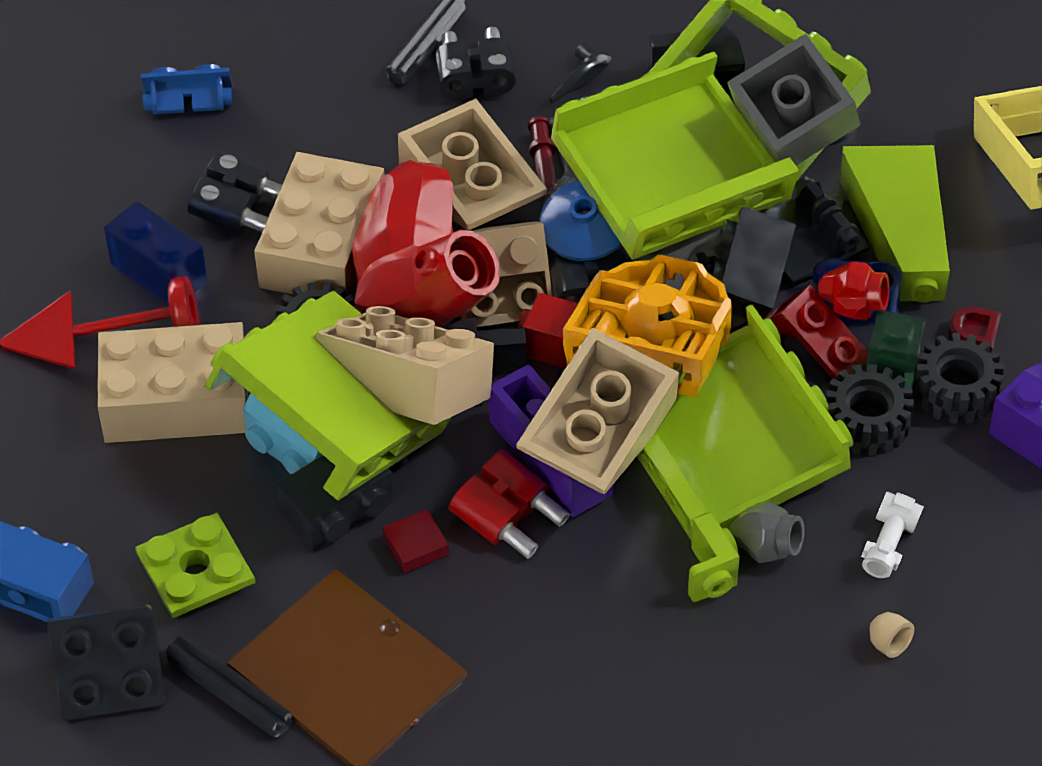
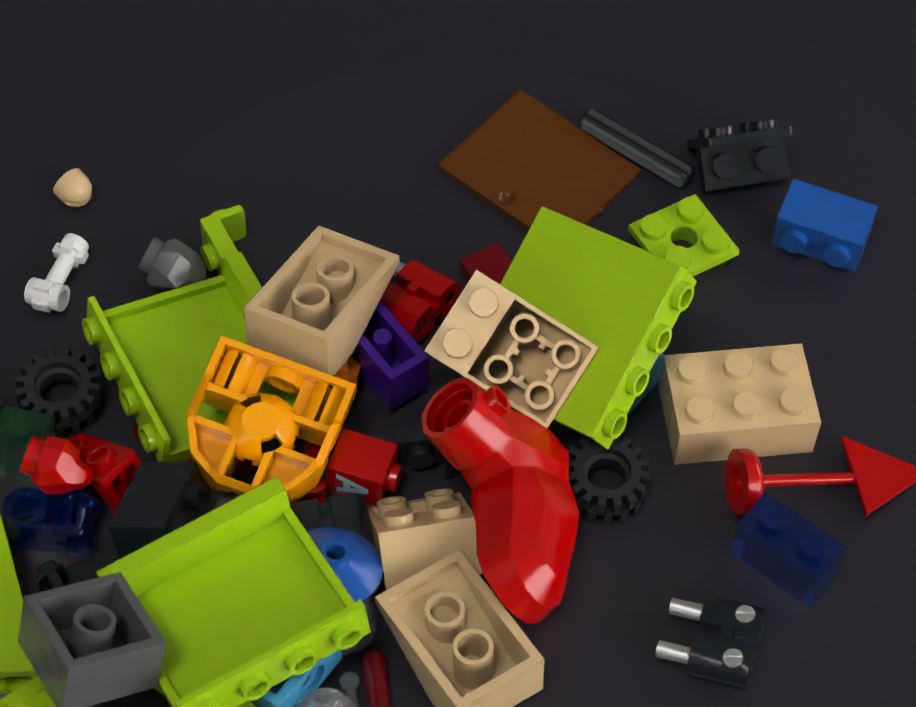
camera: 175 degrees right, 5 degrees up
(315, 224) = (617, 586): tan brick -> none

